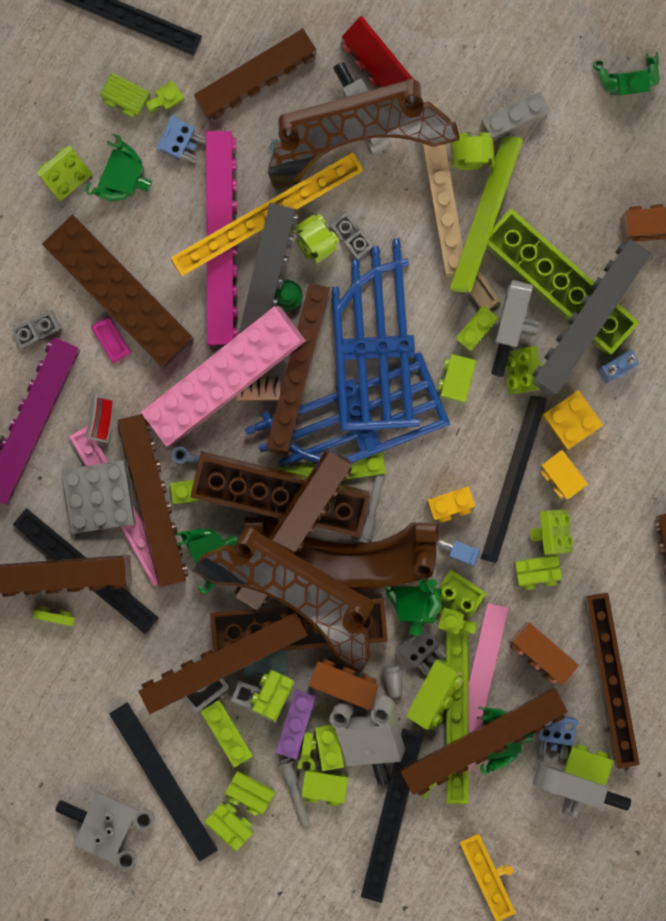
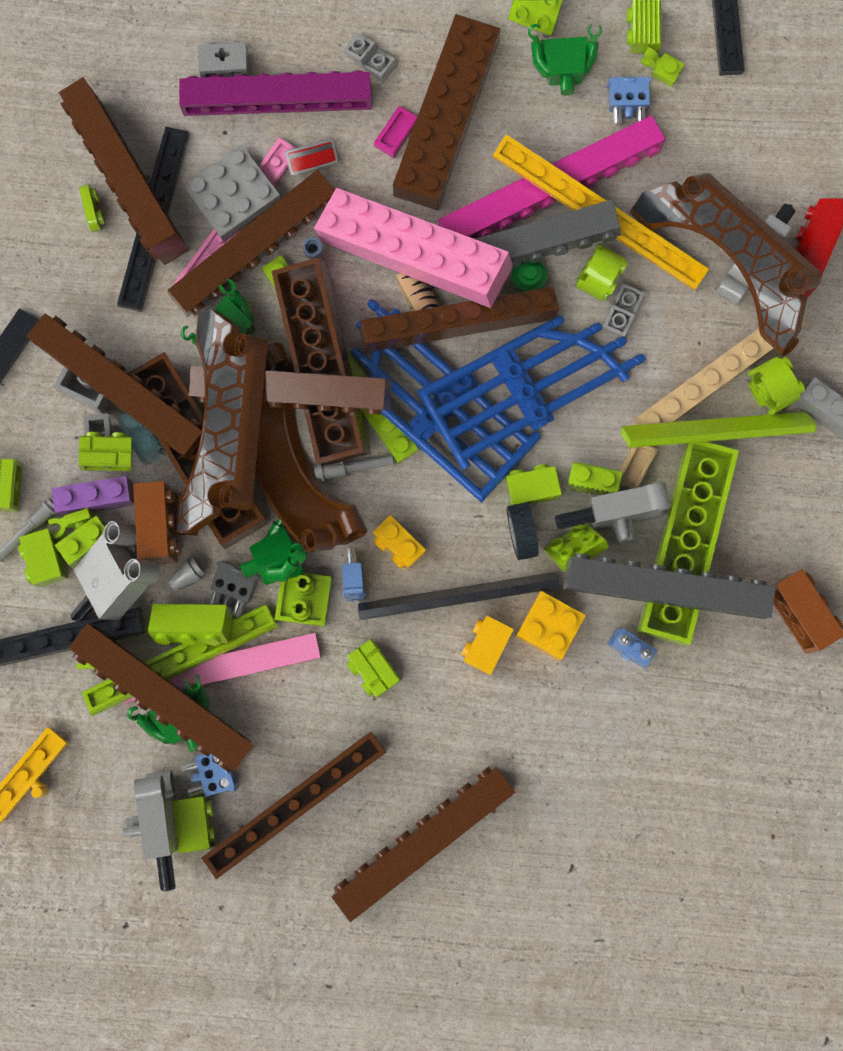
camera: 65 degrees right, 5 degrees down
(227, 733) = (52, 432): lime brick -> none
(256, 74) = (734, 138): reddish brown brick -> none
(452, 621) = (277, 605): lime plate -> none
(490, 404) = (522, 531): none -> black wheel
(543, 654) = (286, 716): dark orange brick -> none
(554, 532) = (423, 664): lime plate -> none

